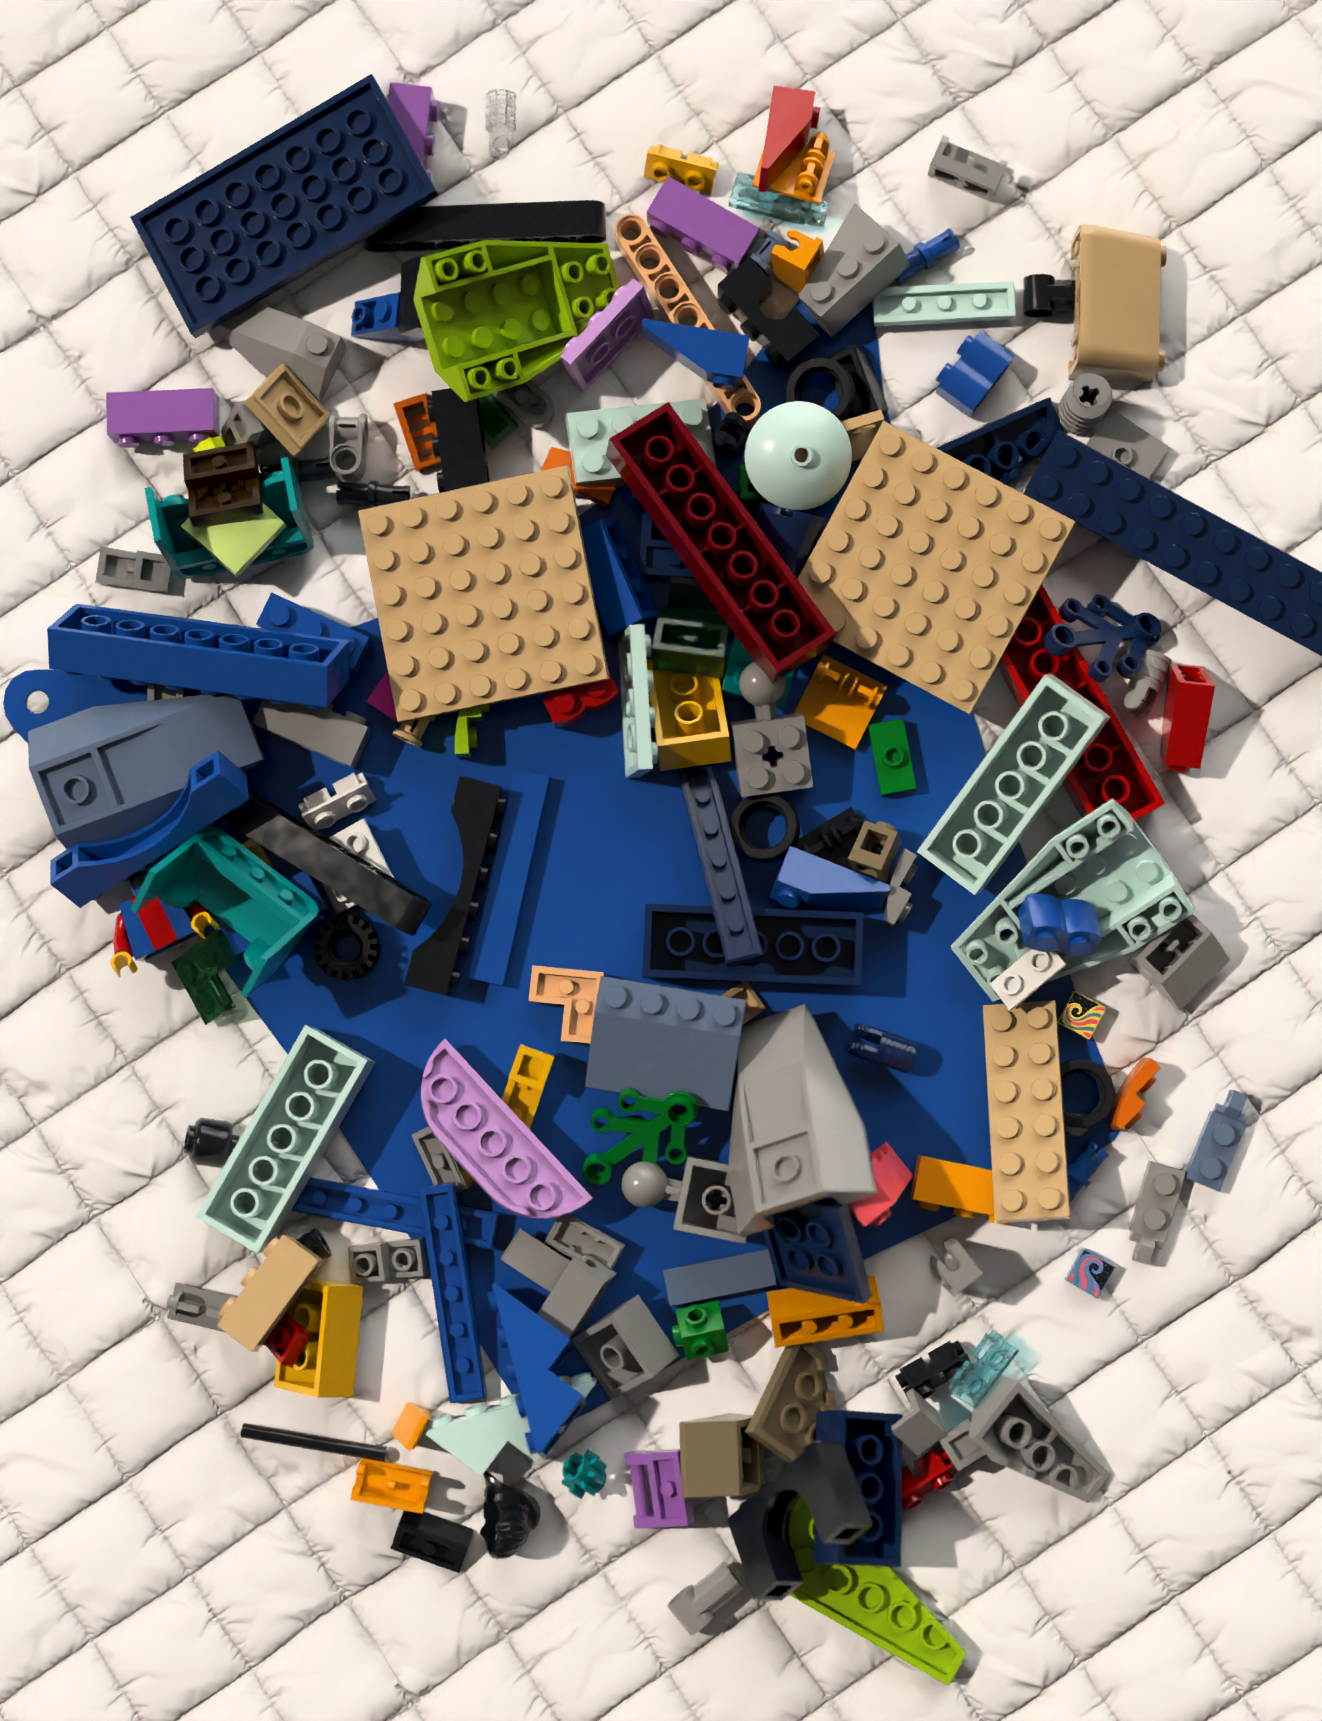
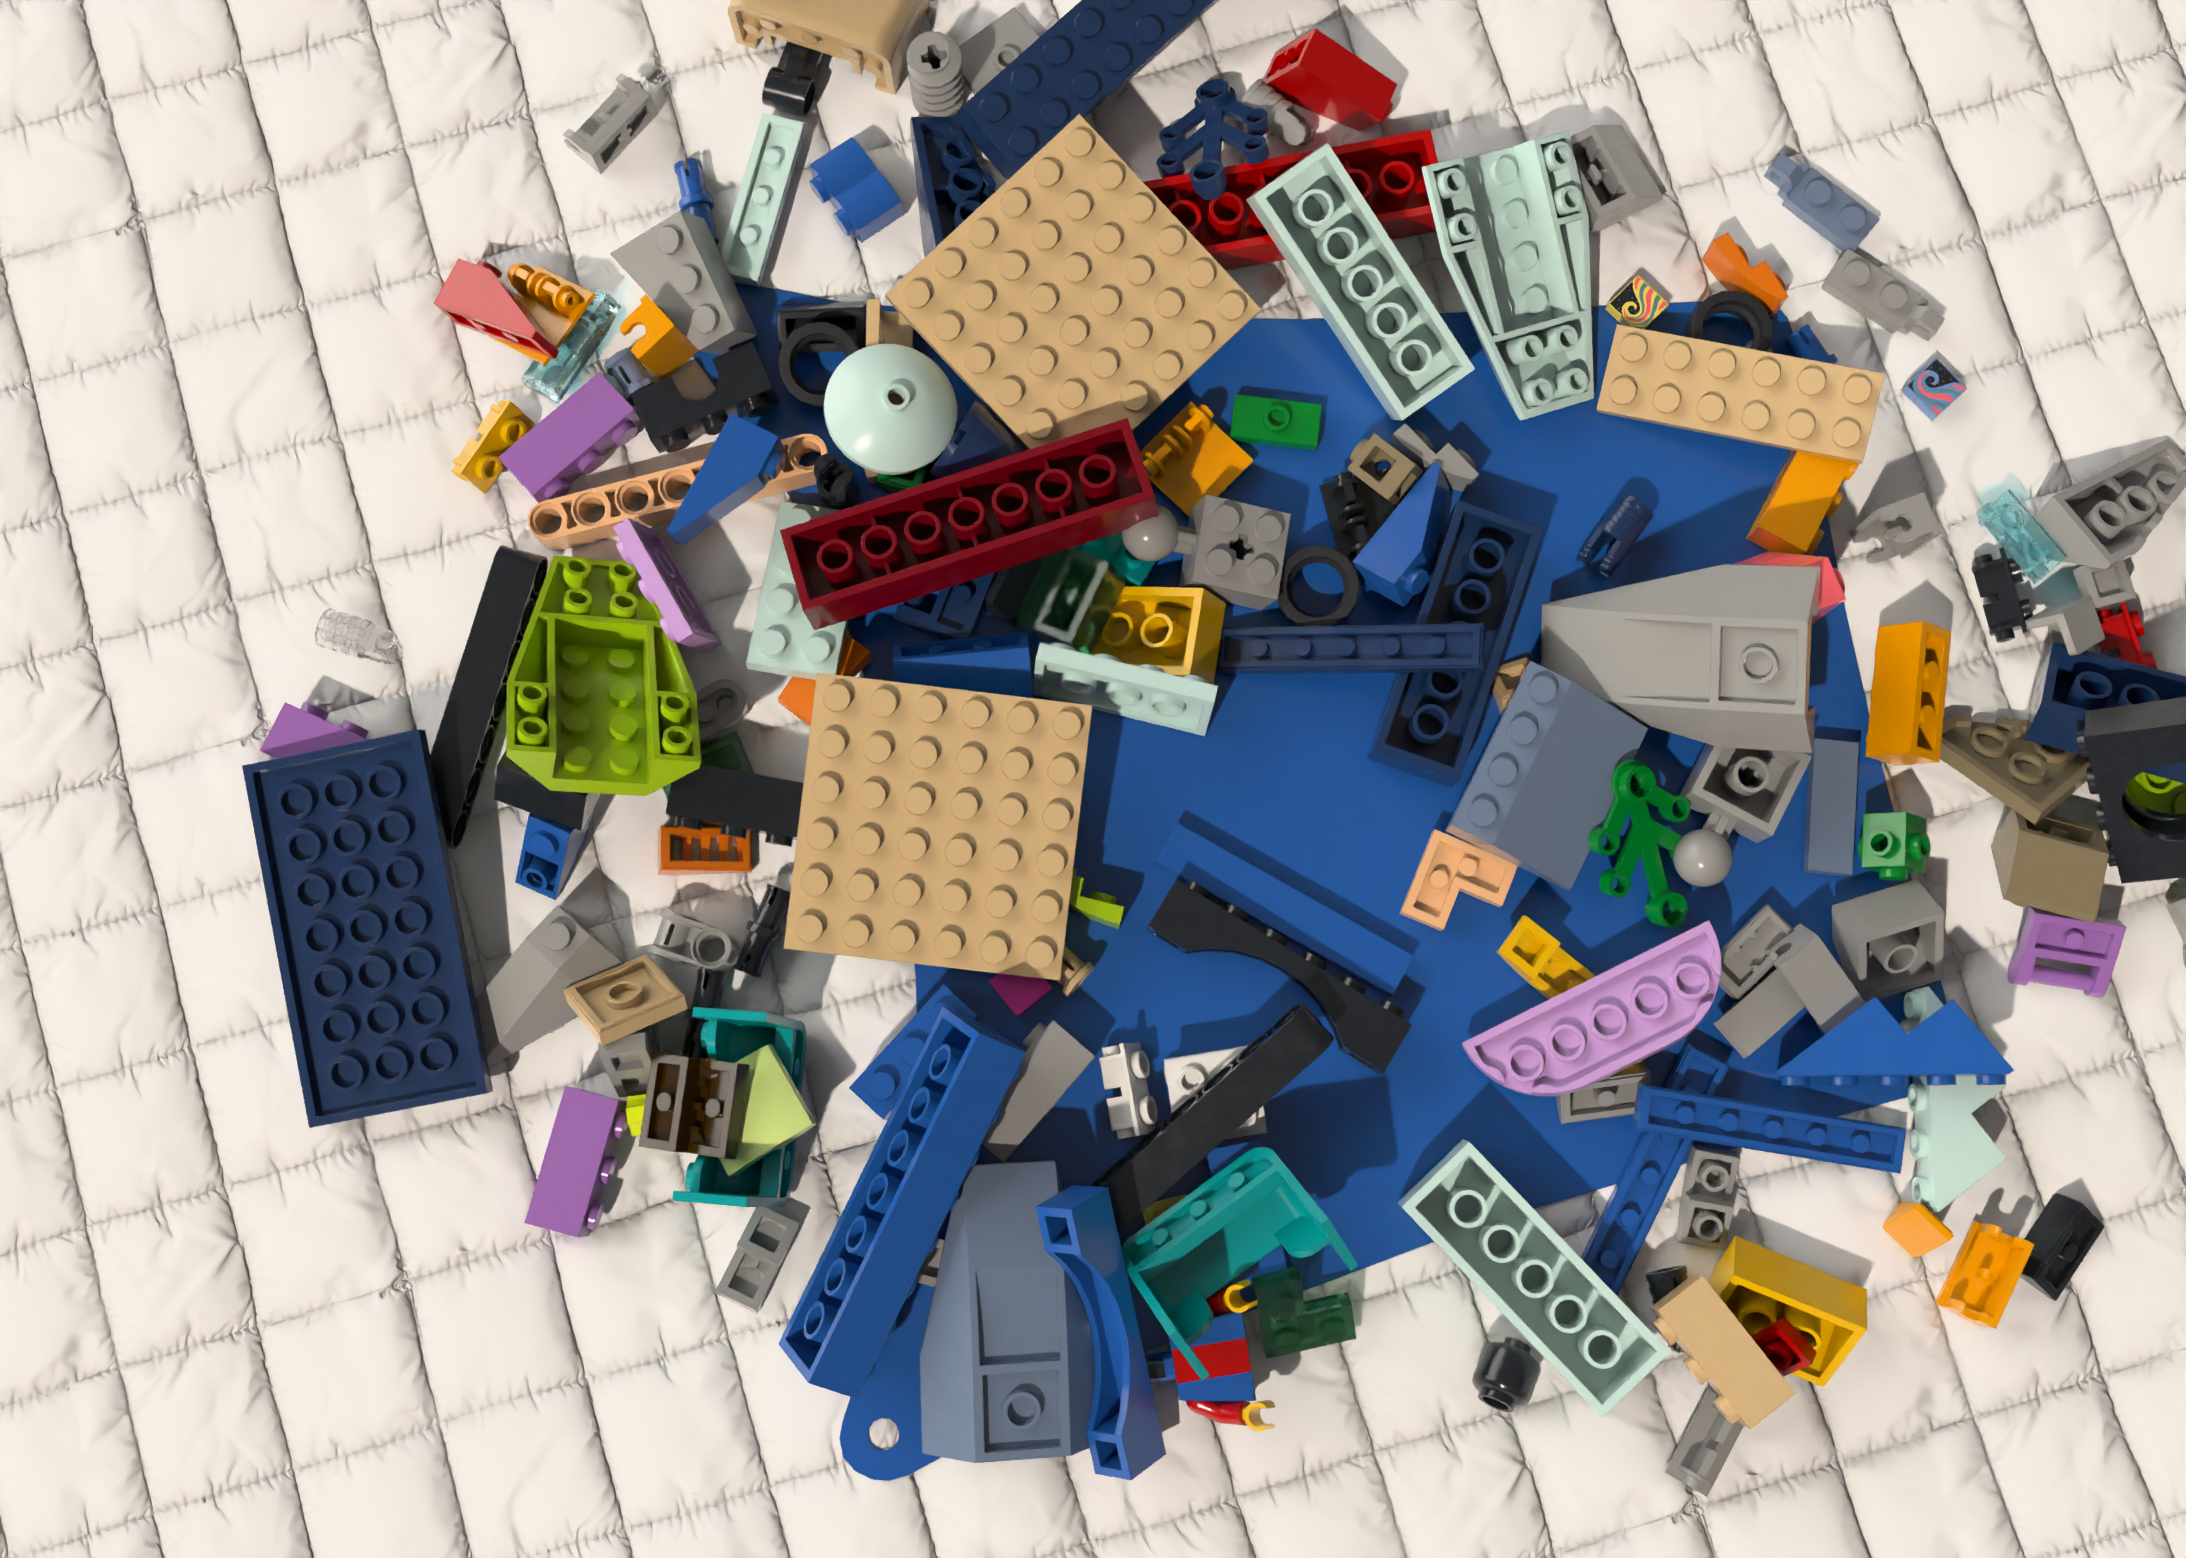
camera: 80 degrees left, 5 degrees down
(313, 1442) = (1904, 1357): black bar -> none
(368, 947) = (1340, 1124): black tyre -> none
(508, 1517) = (2060, 1145): black hair -> none
(572, 704) = (1103, 768): red brick -> none
(584, 1474) = (2028, 1035): teal gear -> none
(818, 1251) = (1855, 669): dark blue plate -> none
(1027, 976) = (1584, 339): white hinge -> none
(1059, 925) = (1540, 283): blue brick -> none

